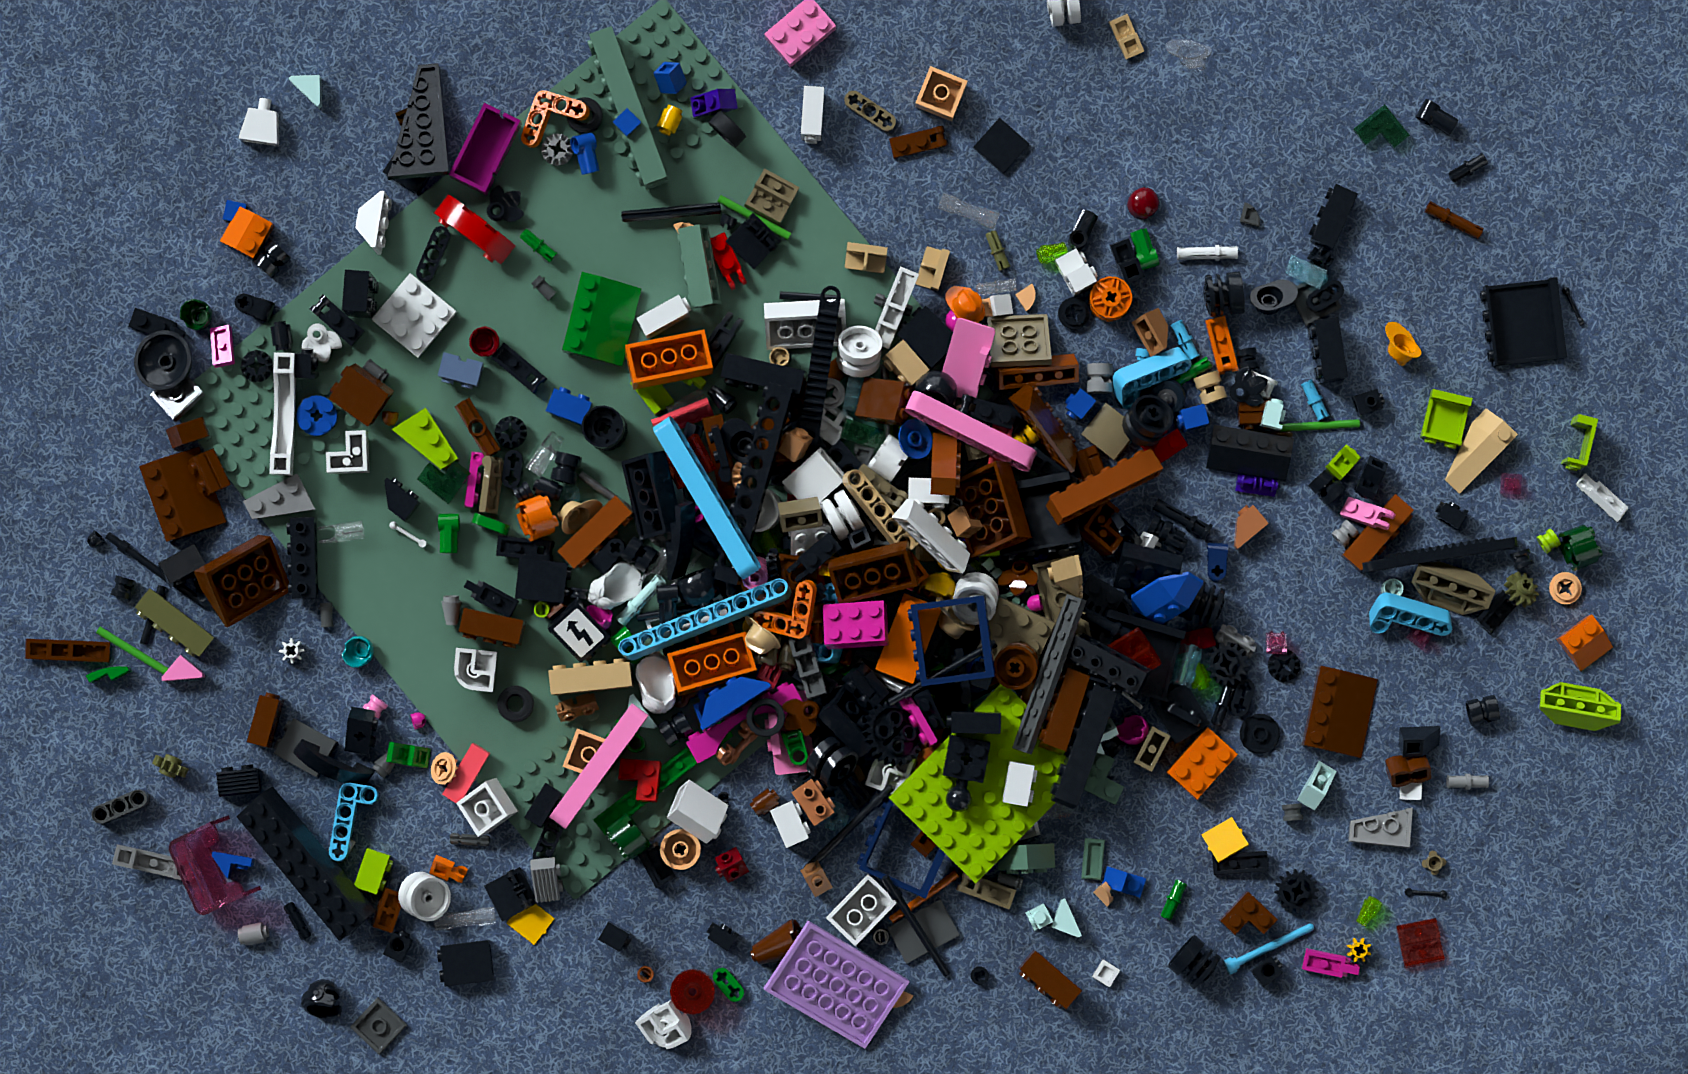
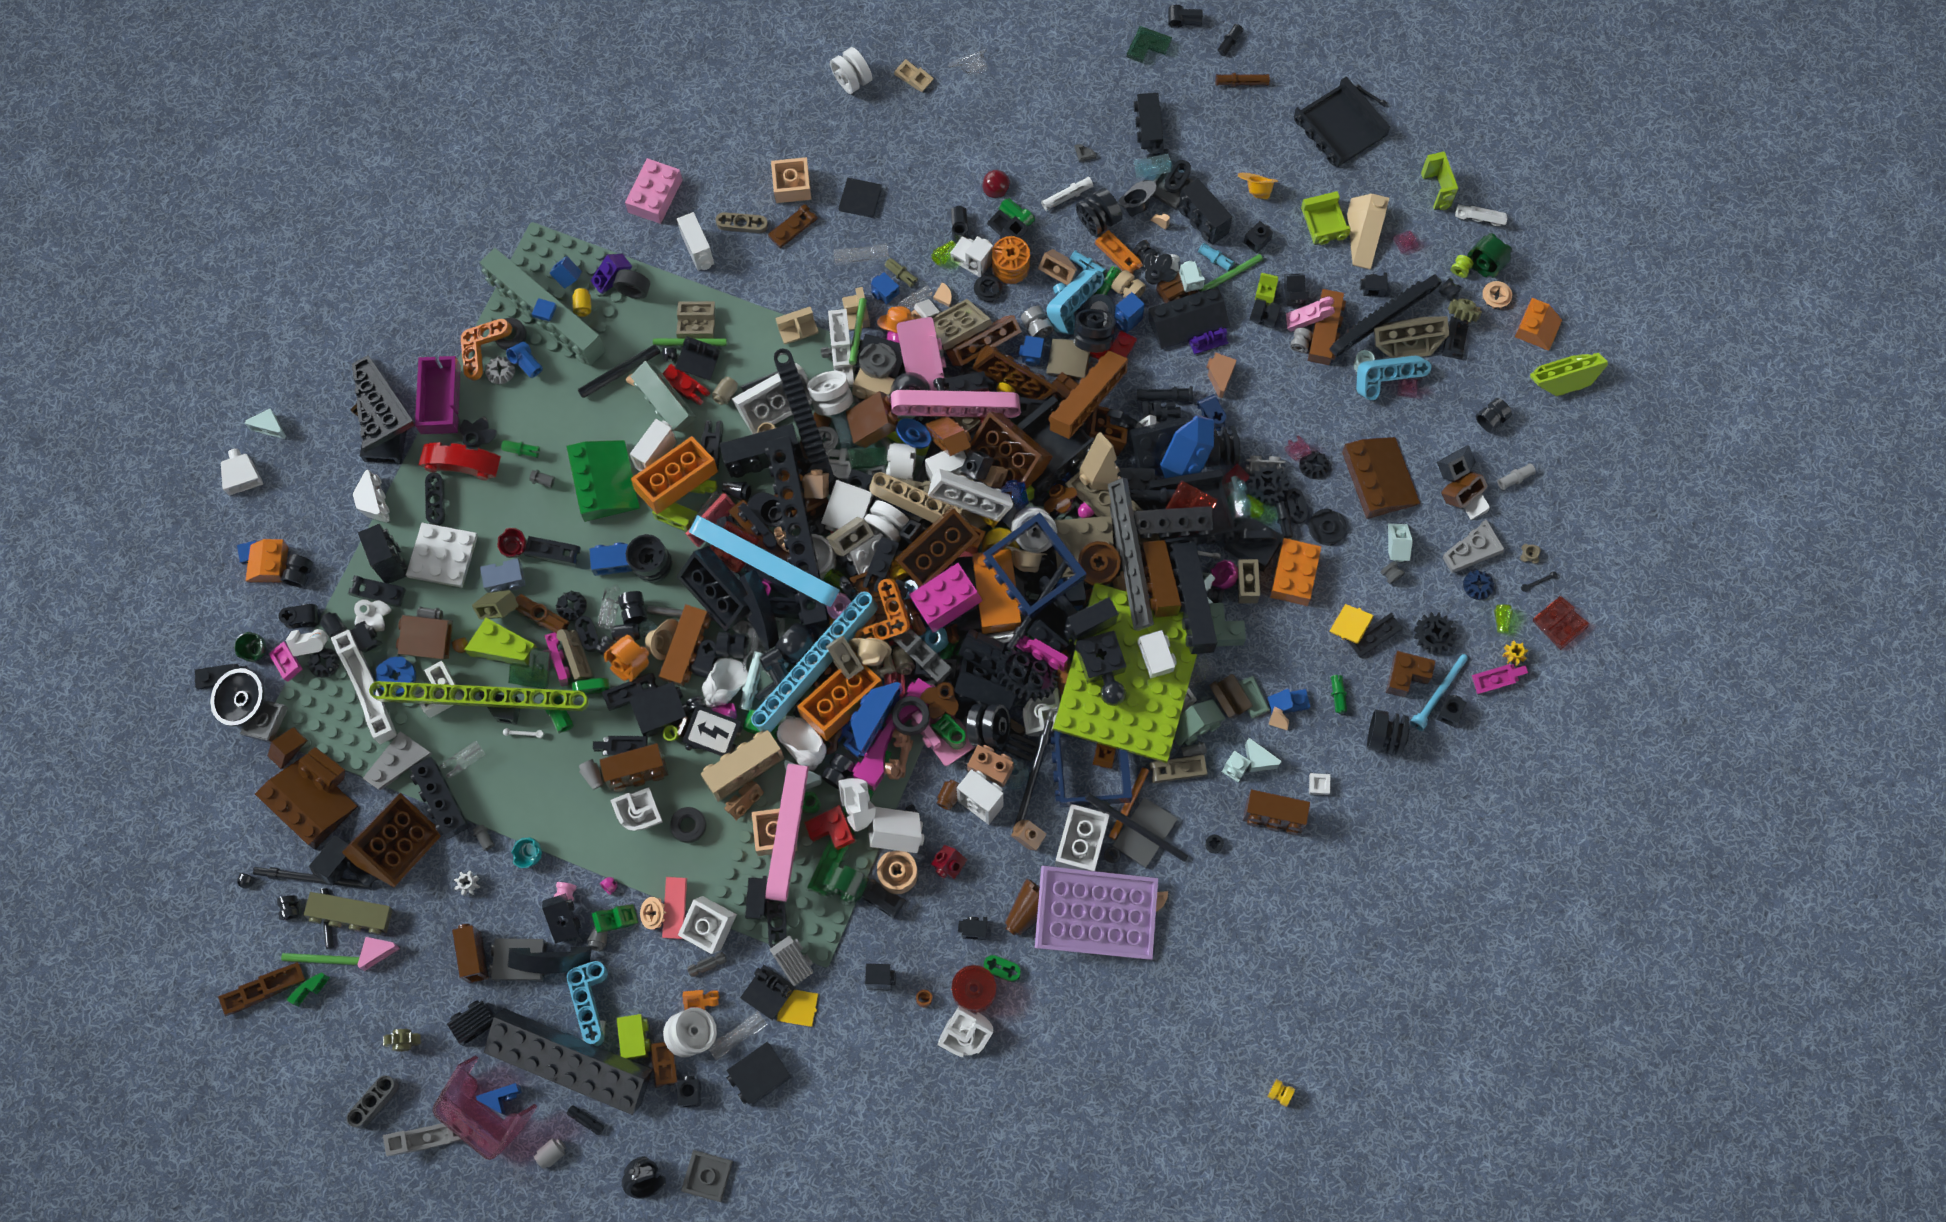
camera: 25 degrees left, 15 degrees down
(250, 340) = (306, 643): none -> white leg
(373, 485) = (470, 692): none -> lime beam
(440, 399) = (495, 605): none -> olive brick
(676, 770) = (857, 802): none -> white brick
(733, 633) = (844, 657): none -> dark tan slope
(761, 290) = (725, 391): none -> dark tan brick
(919, 298) = (857, 331): none -> bright green bar
(921, 342) = (877, 360): none -> dark grey tile
(954, 510) = (977, 465): none -> black brick
(971, 260) = (884, 288): none -> blue brick
(978, 557) = (1019, 494): none -> clear blue bracket
(1072, 849) = (1231, 696): none -> dark brown panel
(1284, 333) = (1161, 220): none -> light nougat tile
(1357, 868) = (1473, 590): none -> dark blue gear

